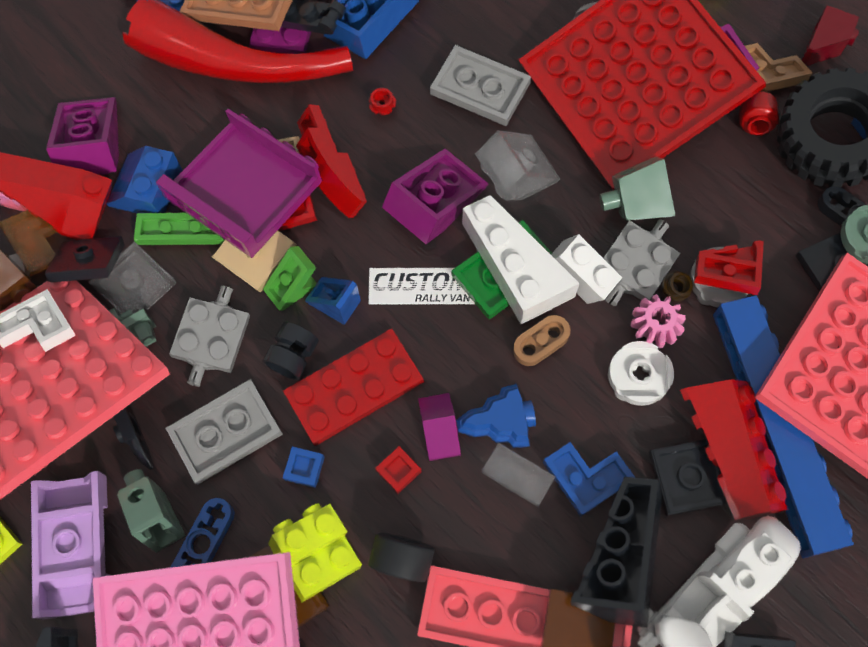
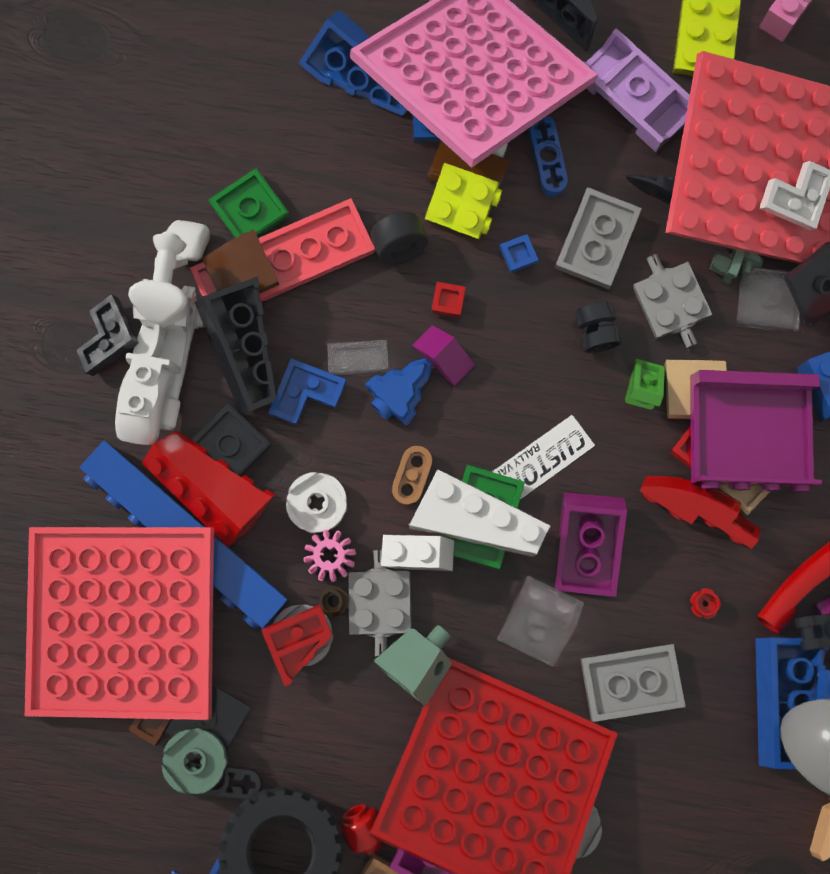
camera: 140 degrees right, 10 degrees up
(149, 512) = (601, 145): sand green torso -> none
(172, 230) = (784, 355): bright green plate -> none
(335, 298) = (601, 394): blue slope -> none
(353, 387) = (530, 340): red plate -> none

